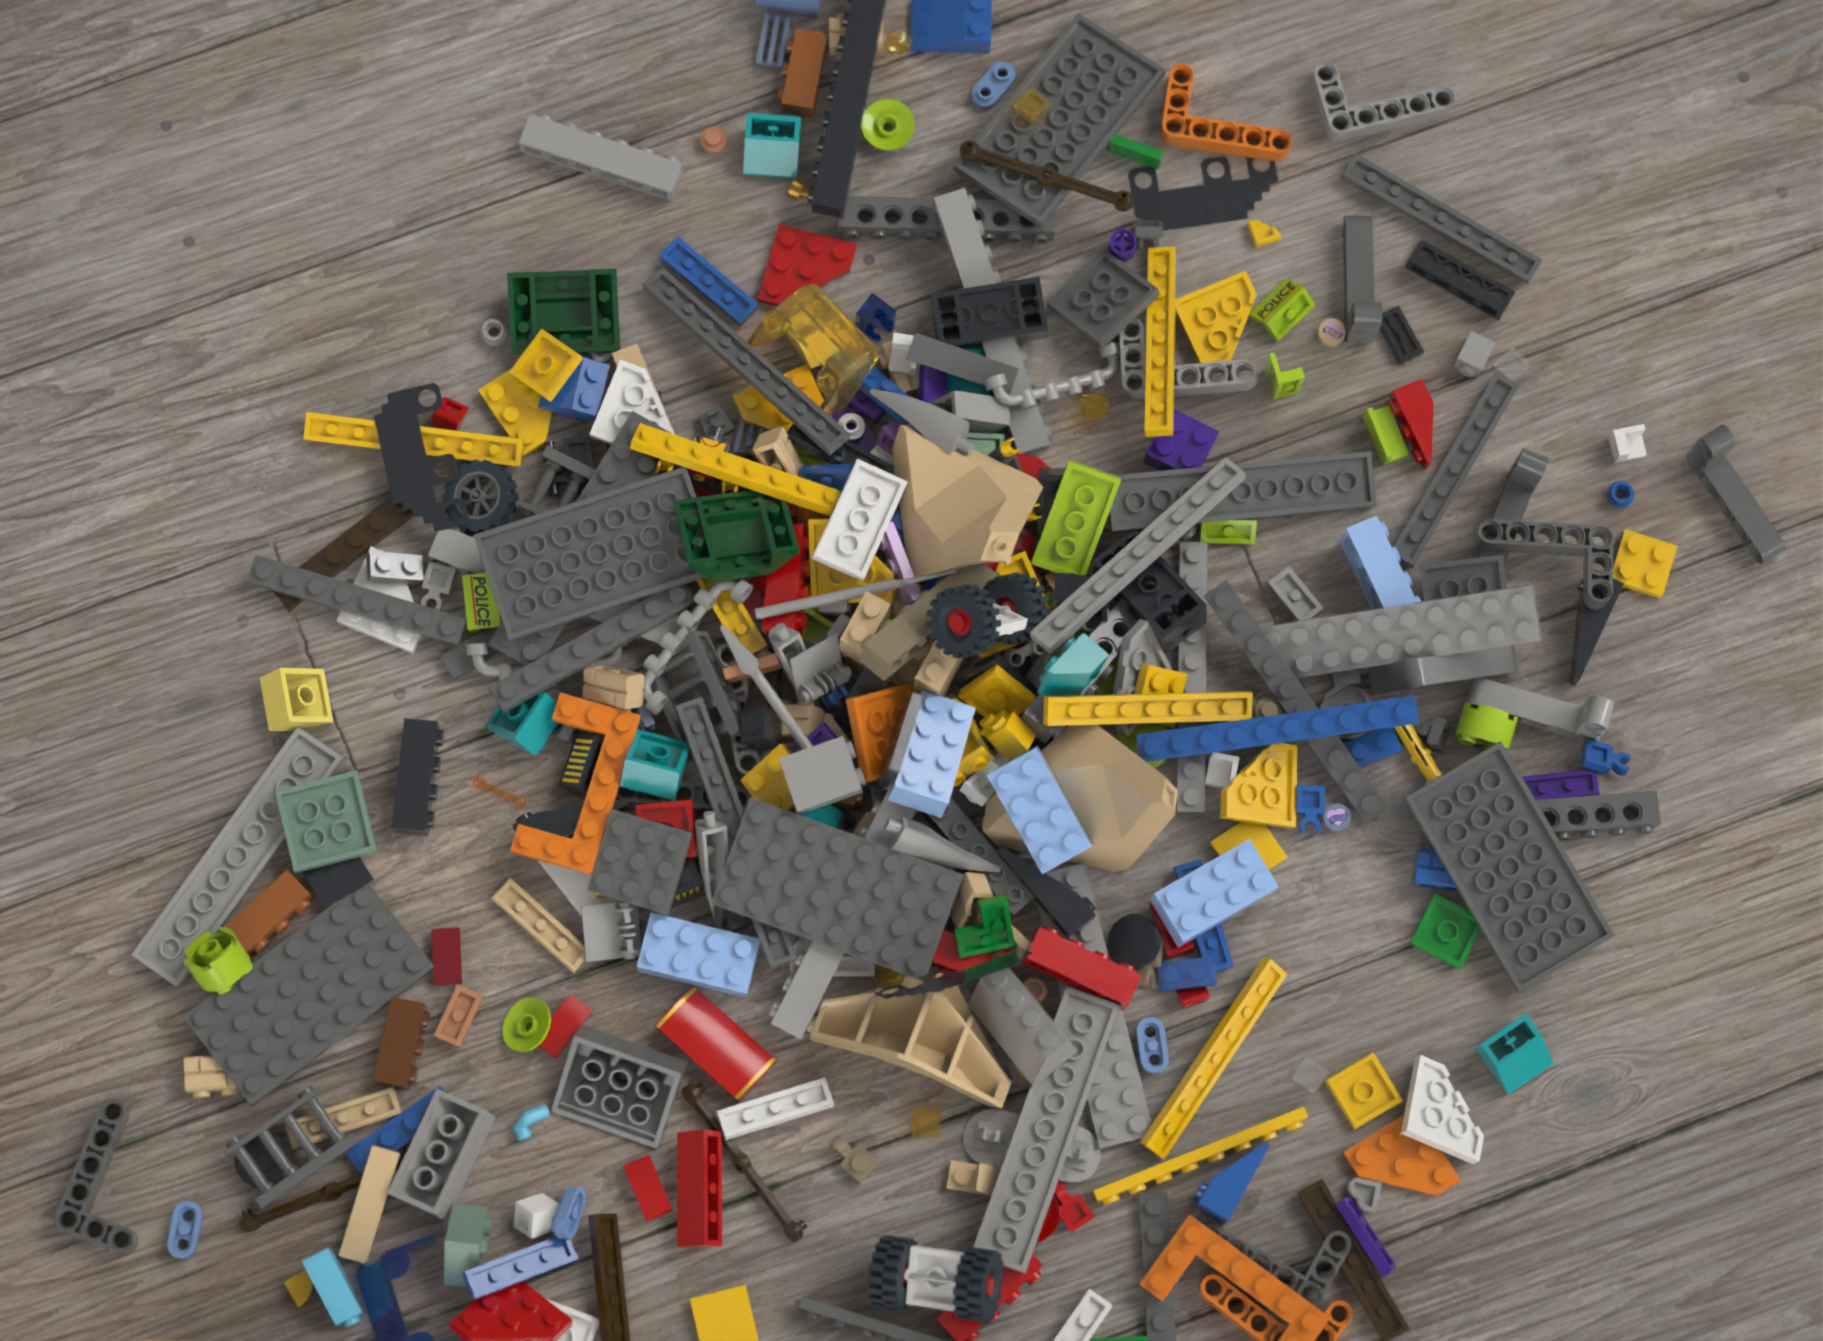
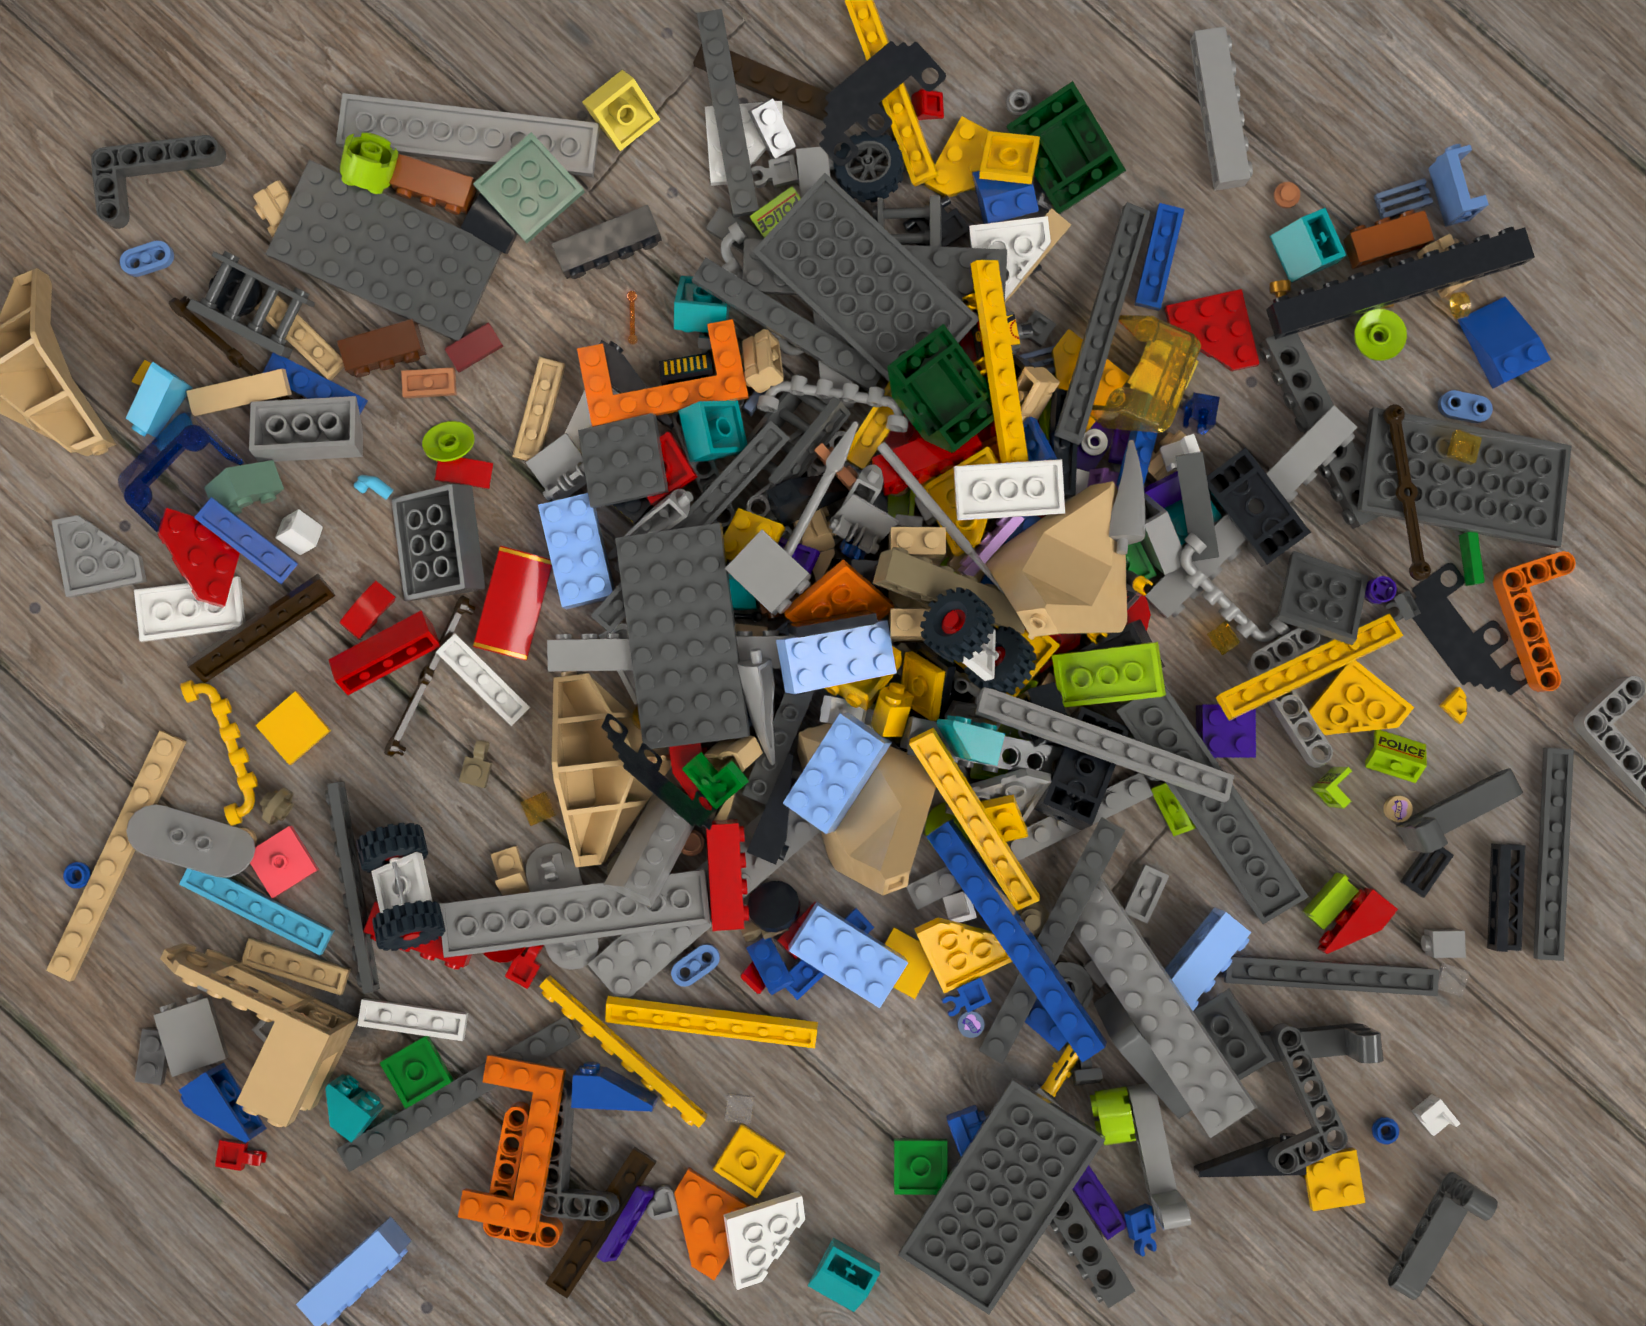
camera: 70 degrees right, 10 degrees up
(569, 1212) = (312, 557): medium blue plate -> none

